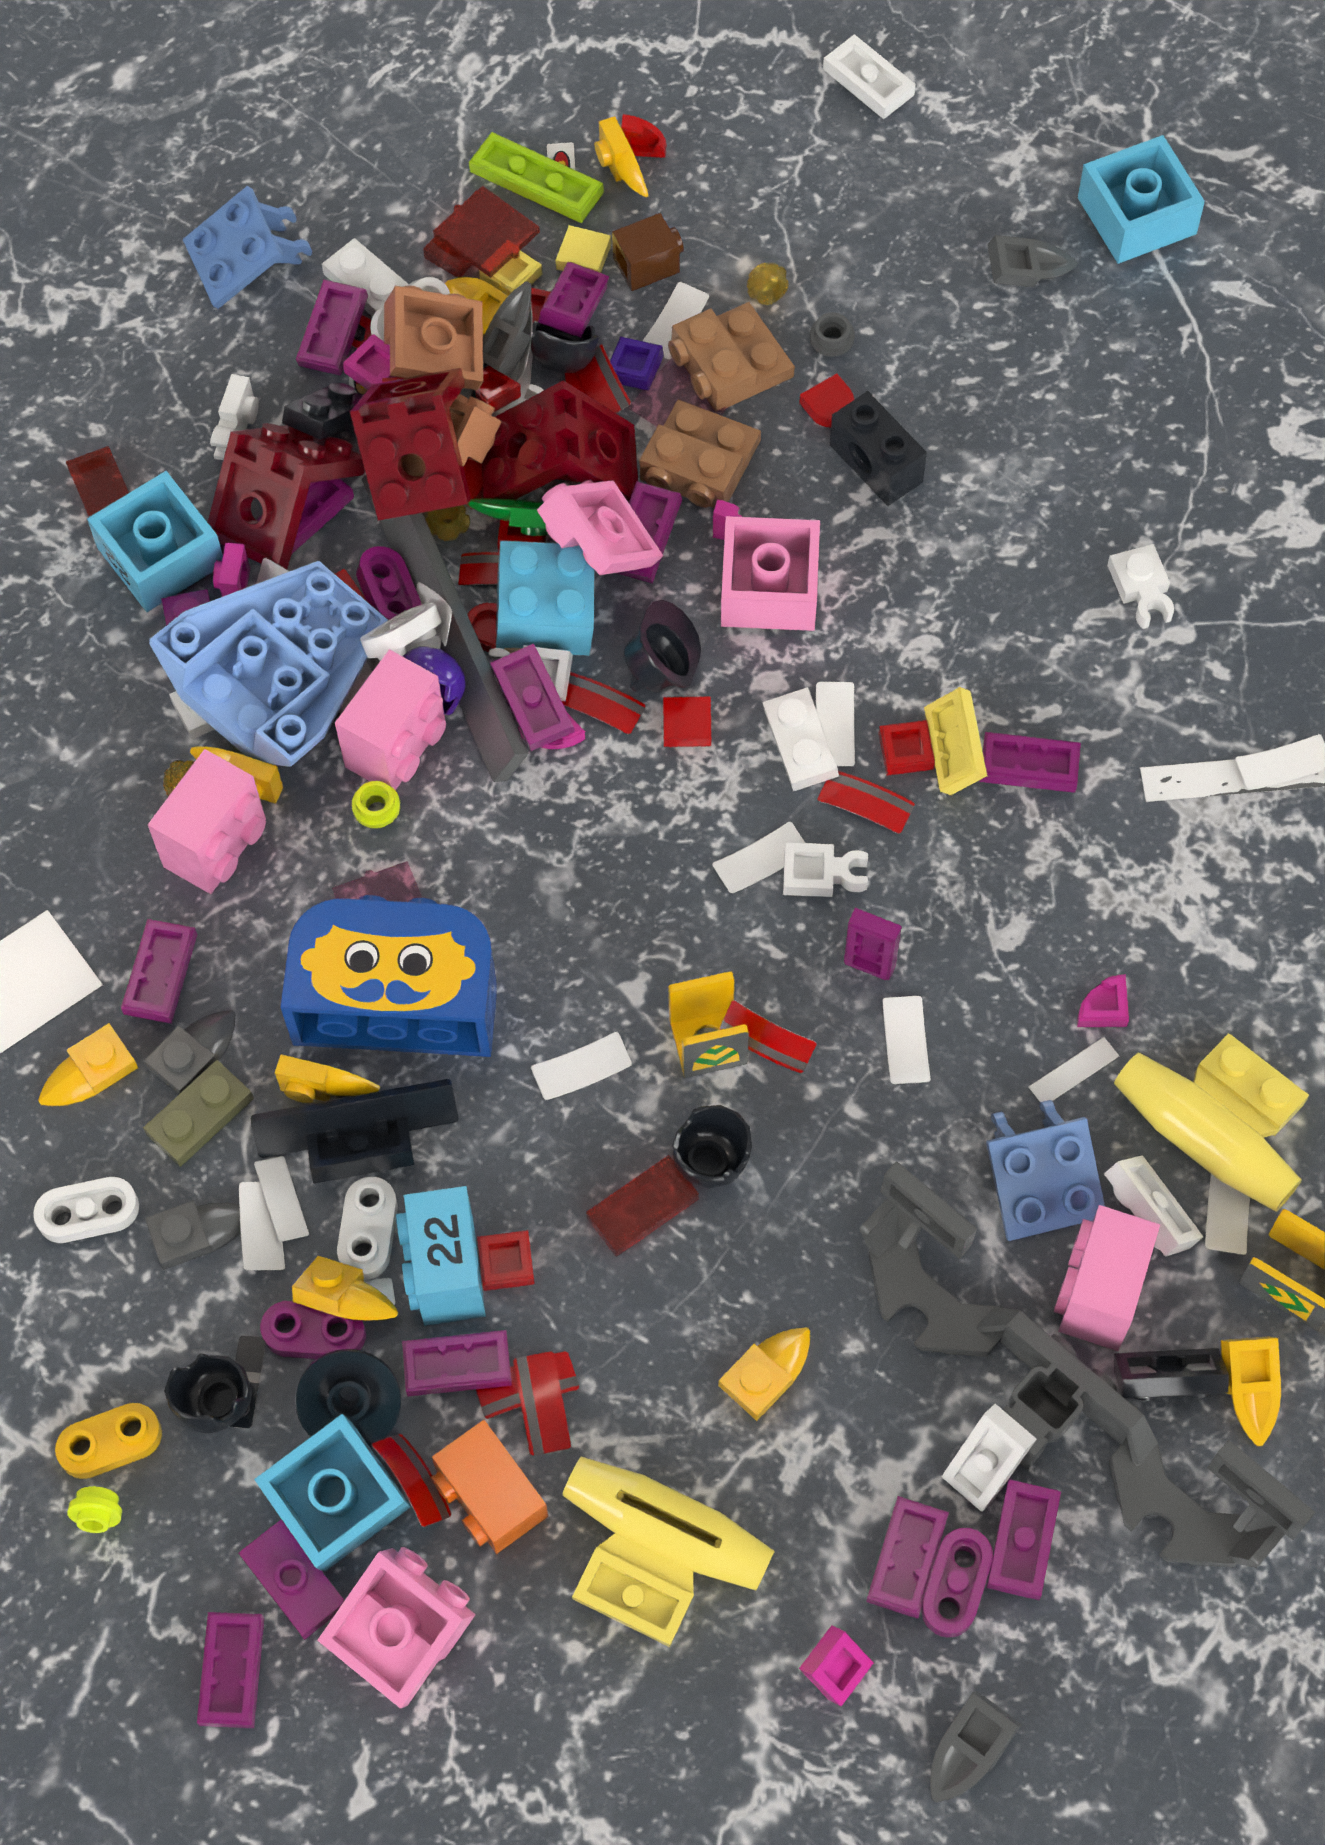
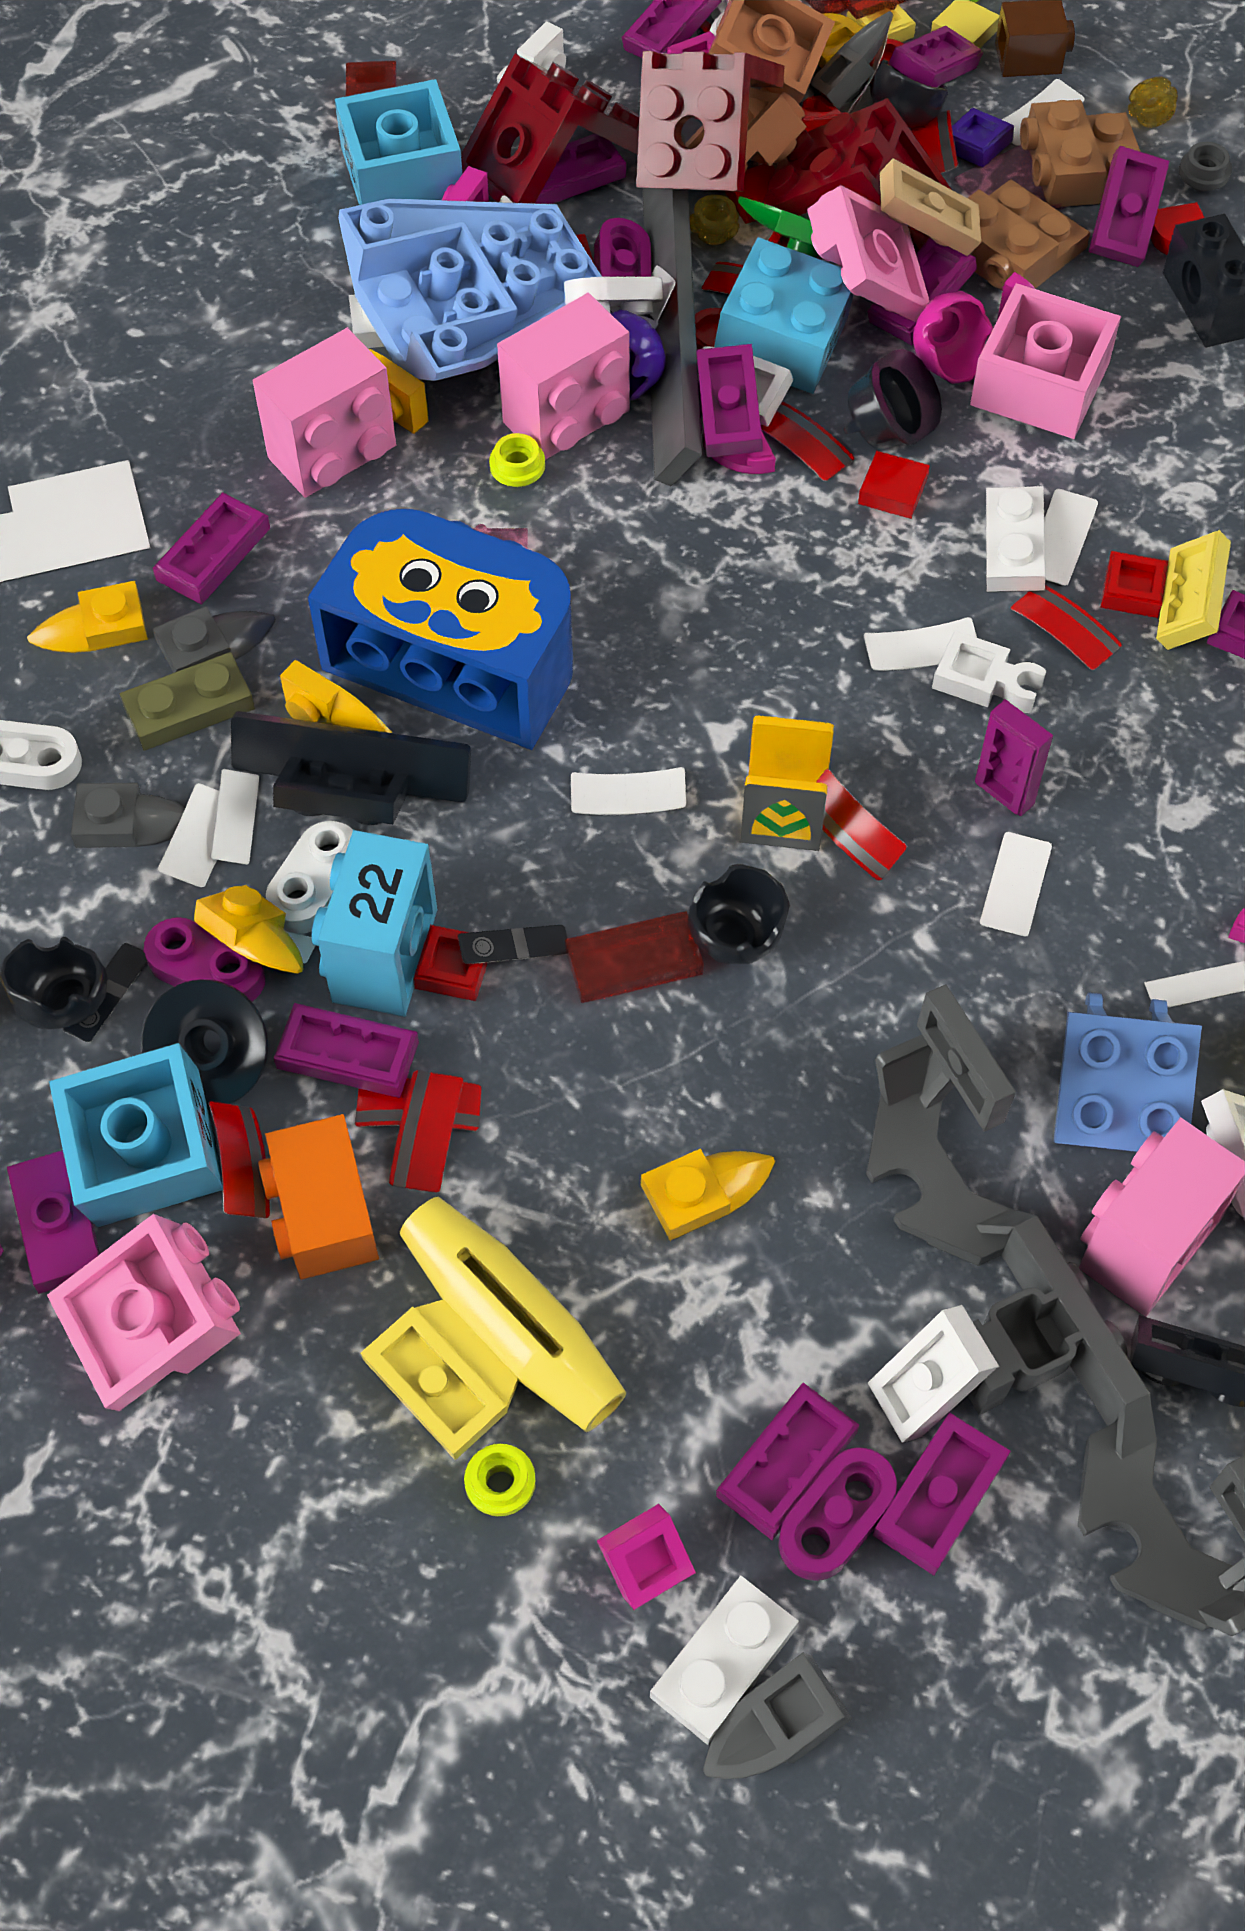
camera: 20 degrees right, 5 degrees down
(322, 411) = (613, 77): black piece -> none
(547, 1229) = (512, 944): none -> black sticker
(632, 468) = (929, 207): none -> tan plate
(687, 574) = (952, 336): none -> dark pink hair
(706, 1632) = (499, 1459): none -> neon yellow plate
(785, 399) = (1129, 206): none -> magenta plate
(917, 1716) = (724, 1659): none -> white plate

